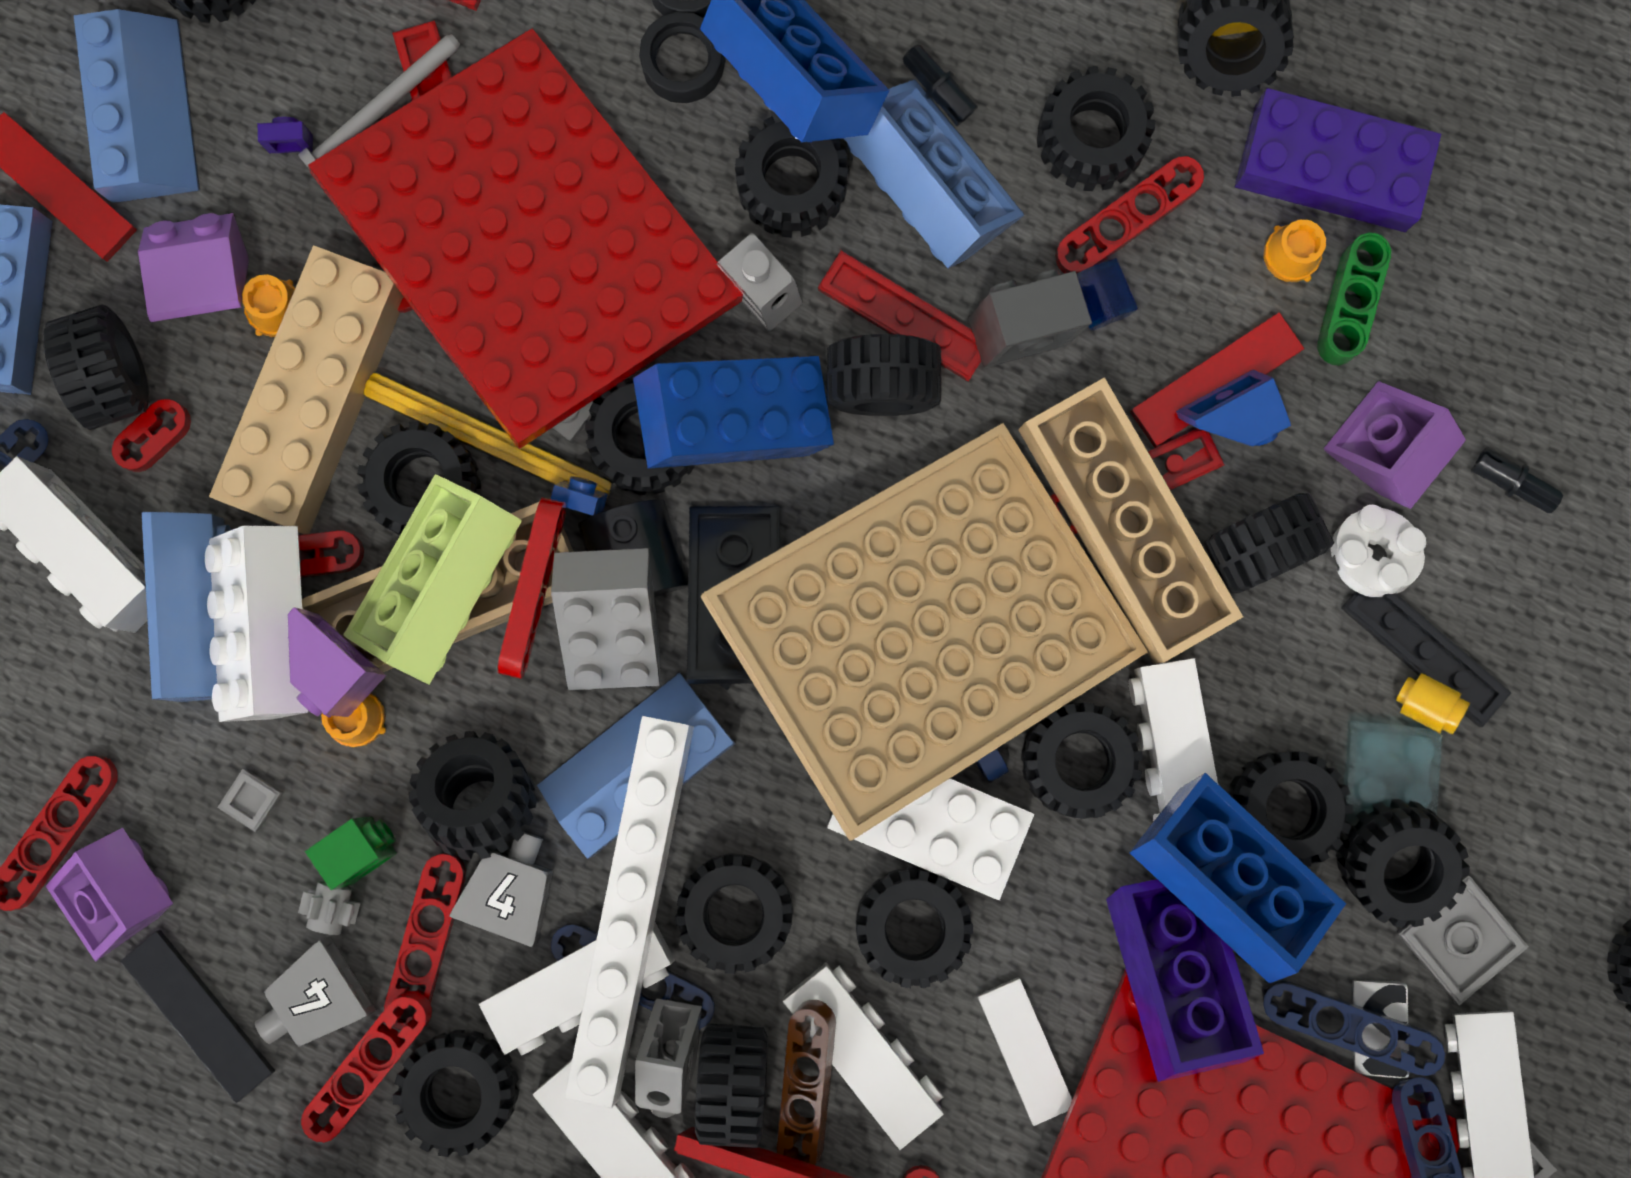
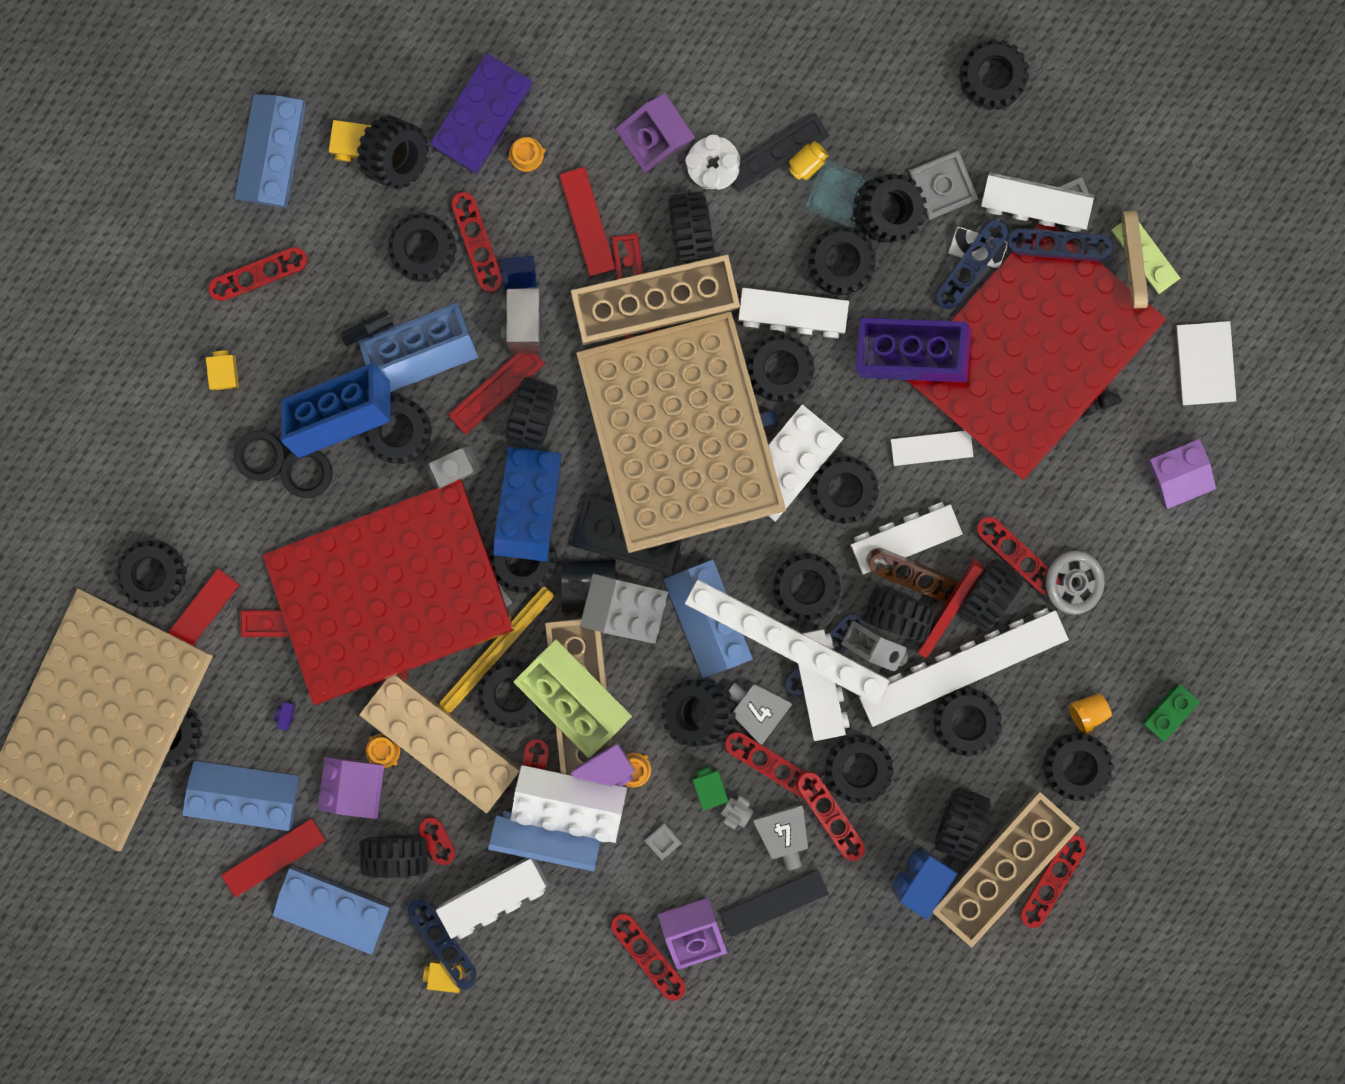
camera: 65 degrees left, 5 degrees up
(387, 98) = (303, 701): light grey bar -> none
(531, 588) = (594, 645): red beam -> none
(580, 495) = (548, 605): blue plate -> none
(1238, 879) = (869, 305): blue brick -> none
(1241, 410) = (610, 217): blue slope -> none
(1368, 285) = (558, 118): green beam -> none
(1517, 480) = (697, 69): black axle -> none

